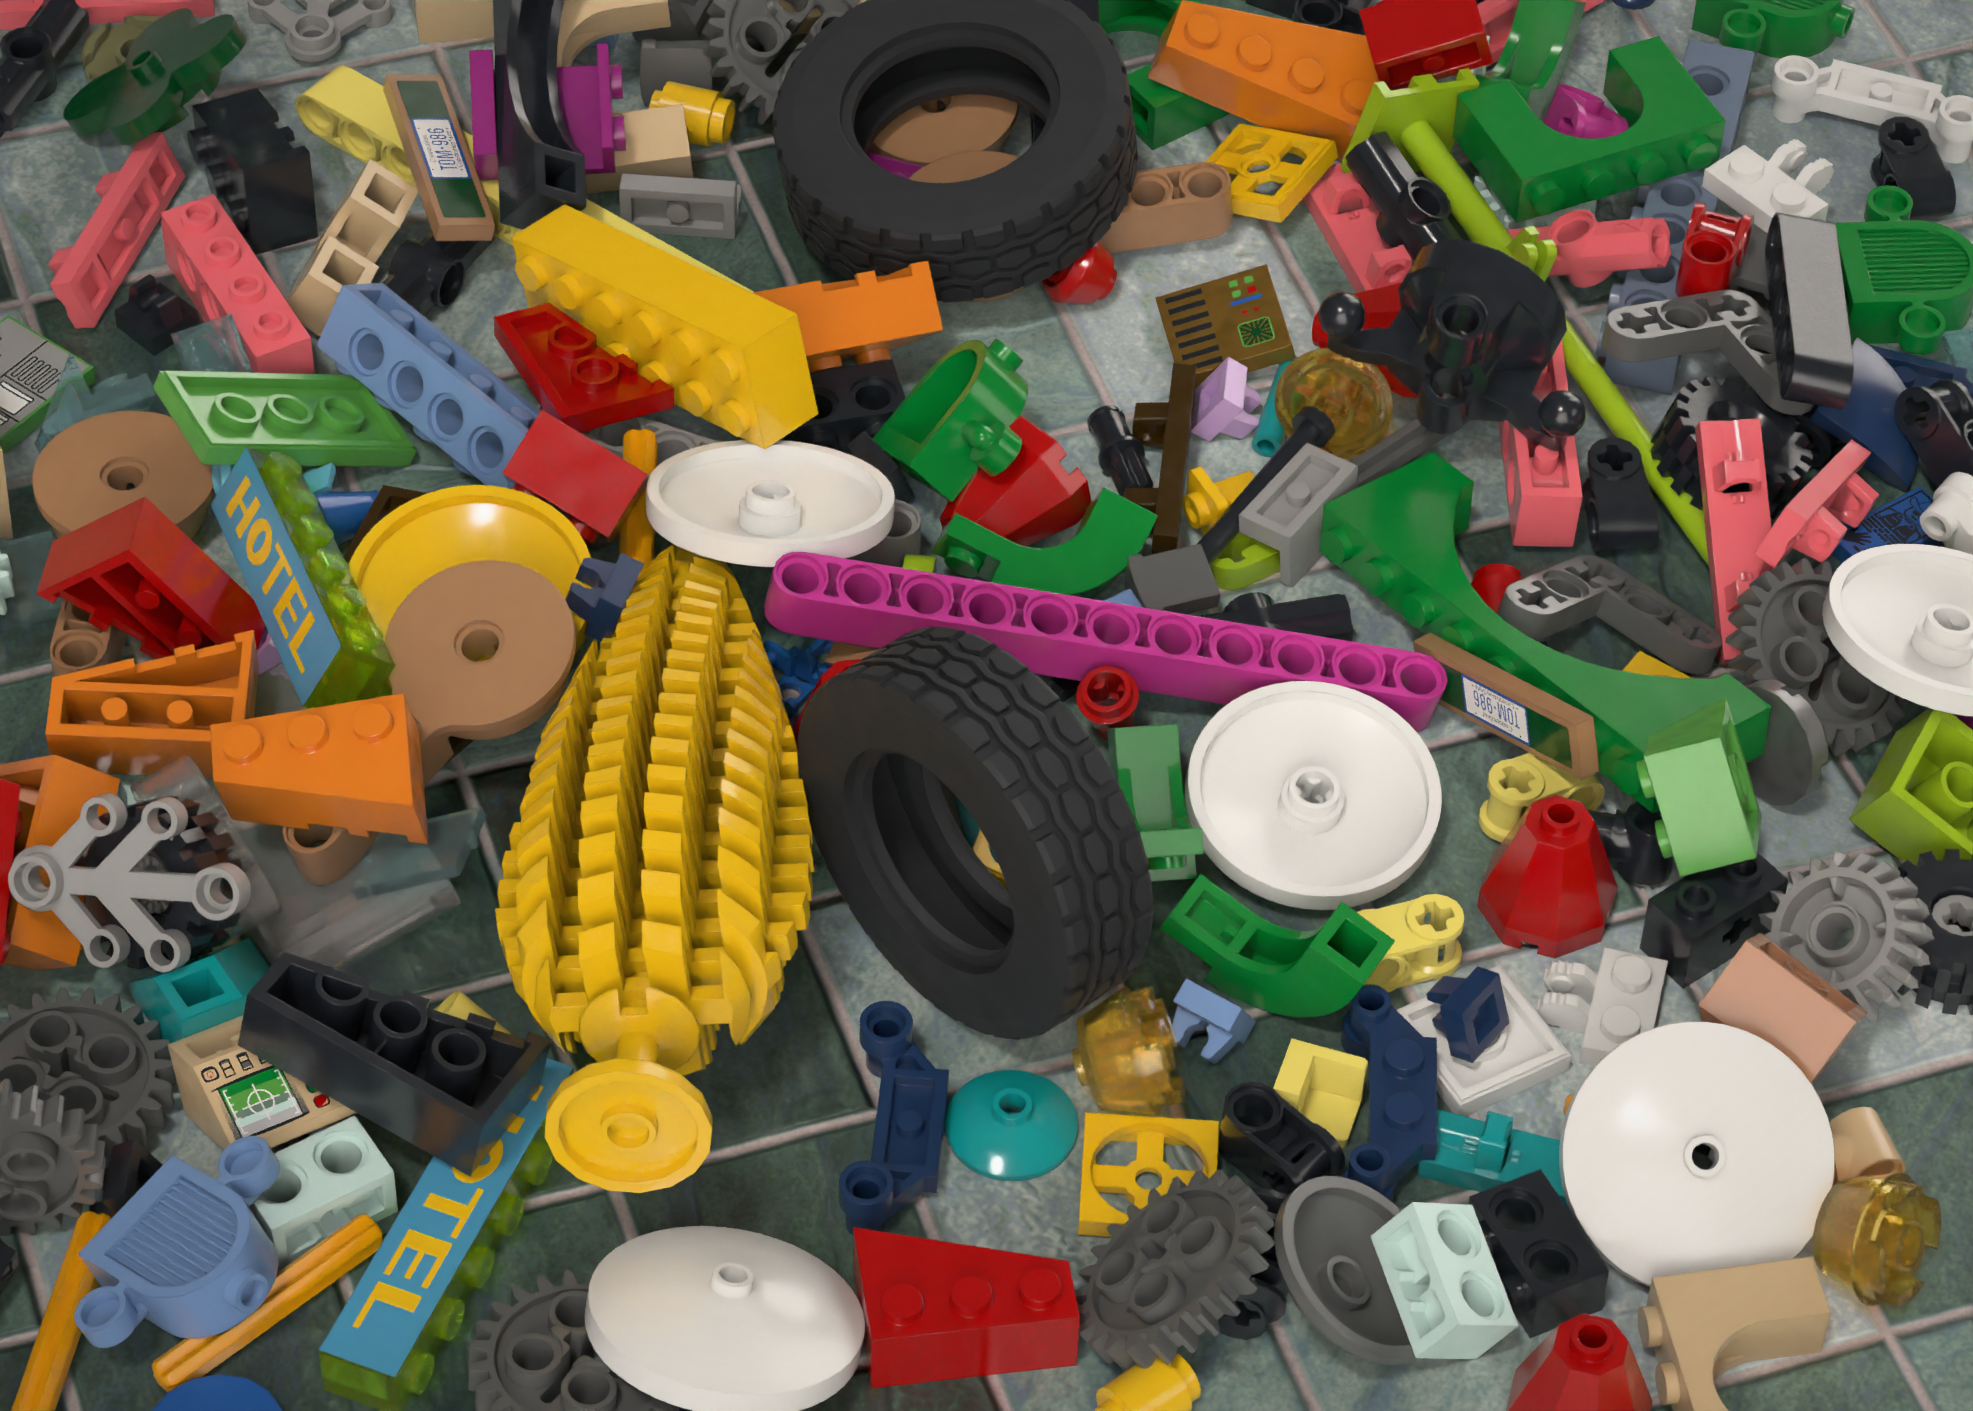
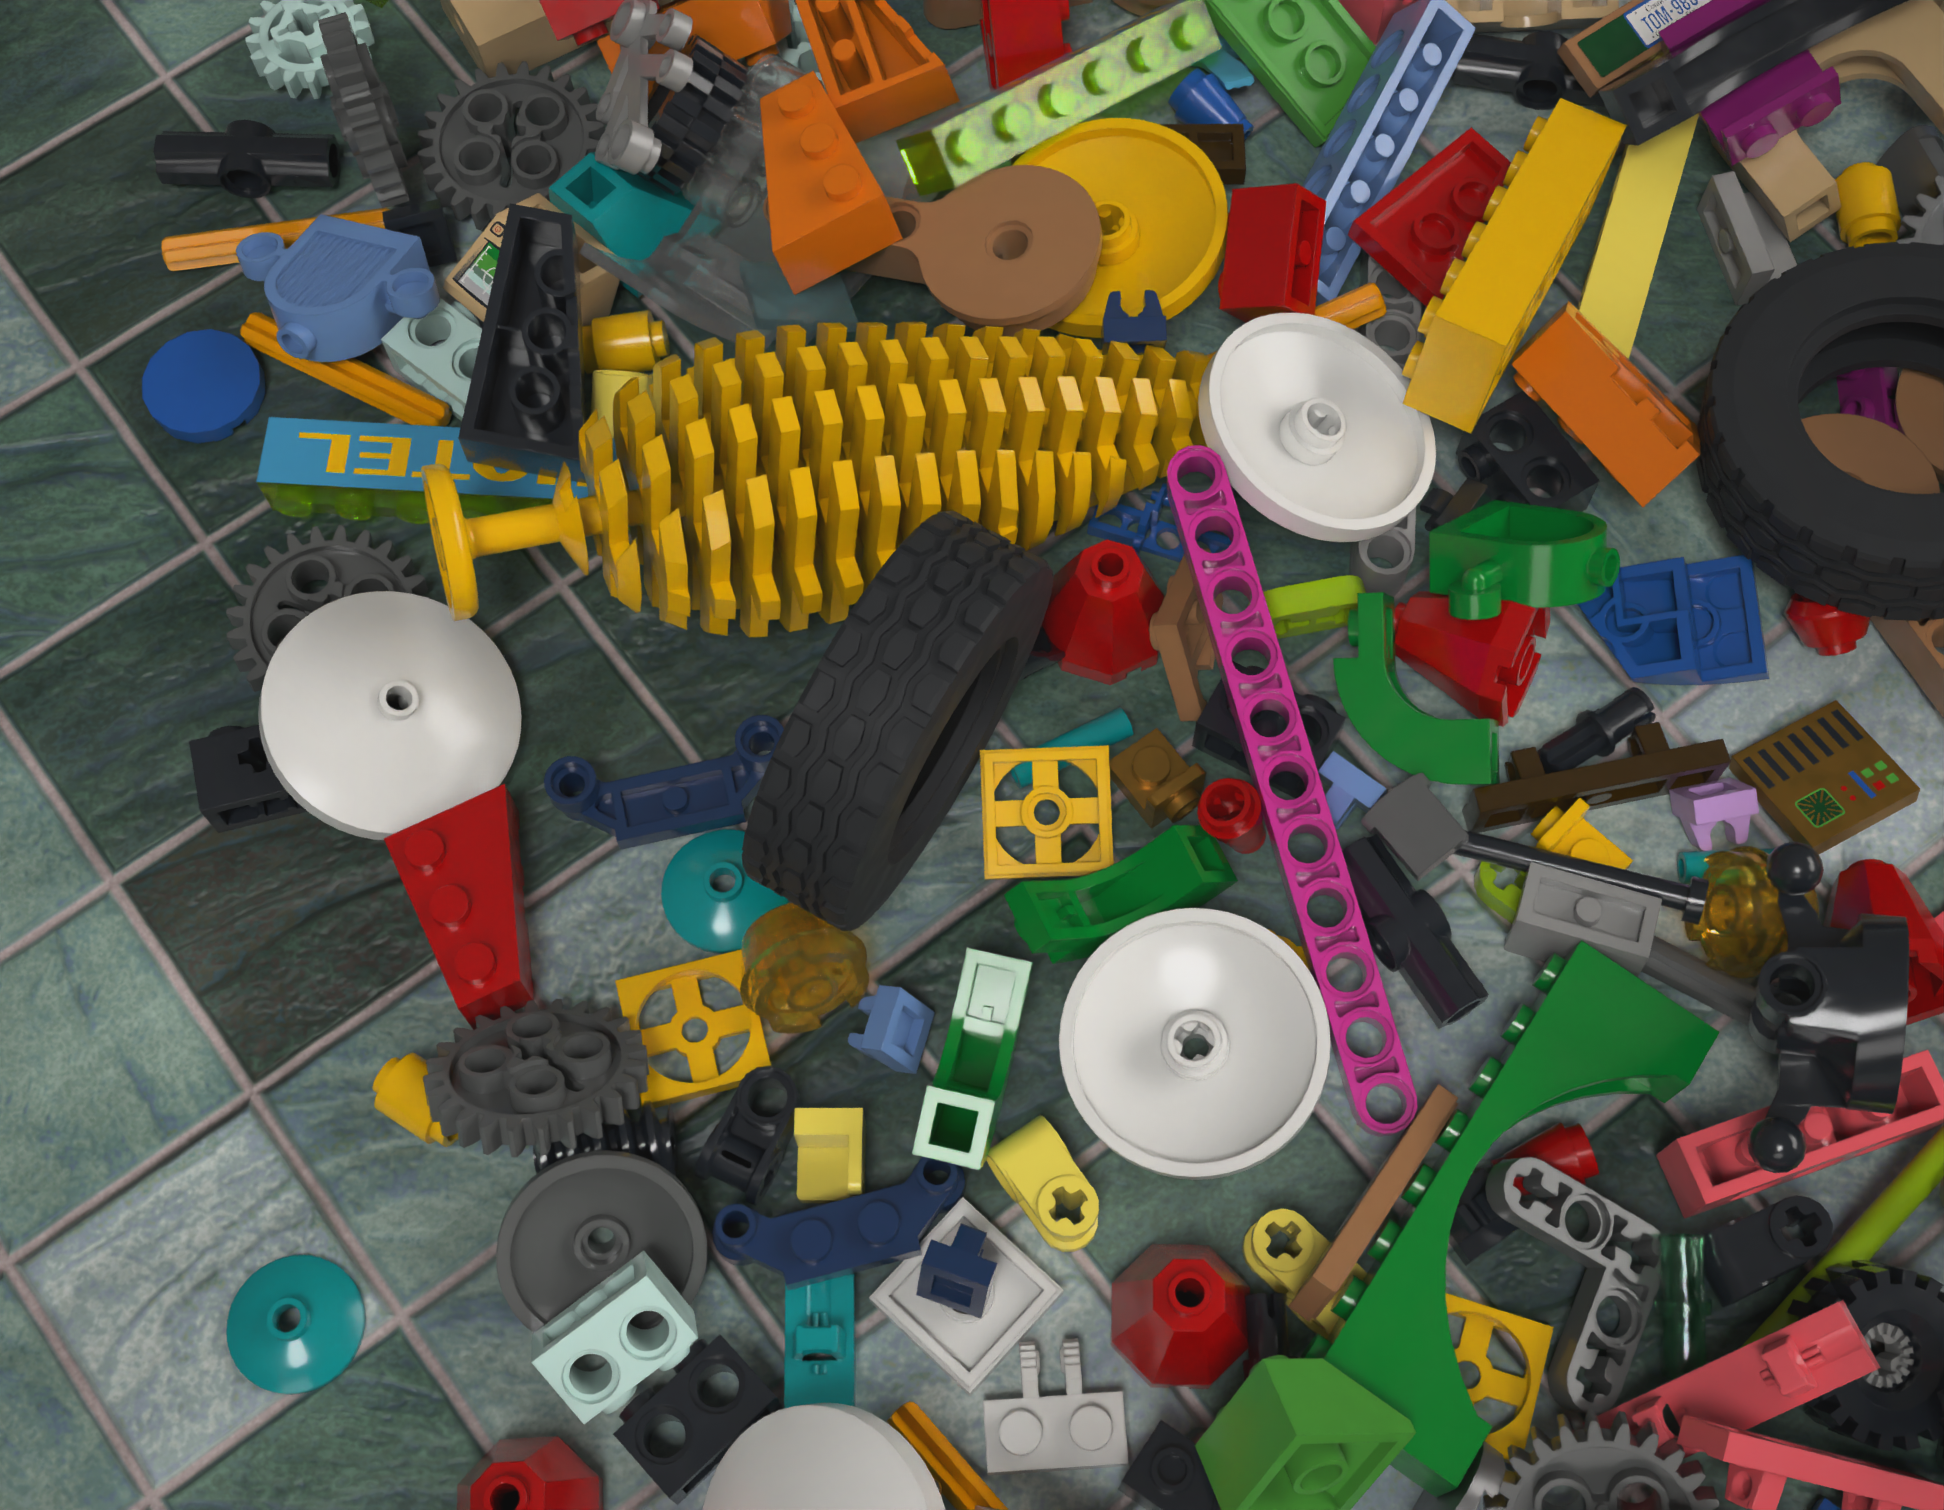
camera: 75 degrees right, 20 degrees up
(1059, 356) = (1684, 622): none -> blue slope
(1650, 560) = (1682, 1303): none -> clear green pin

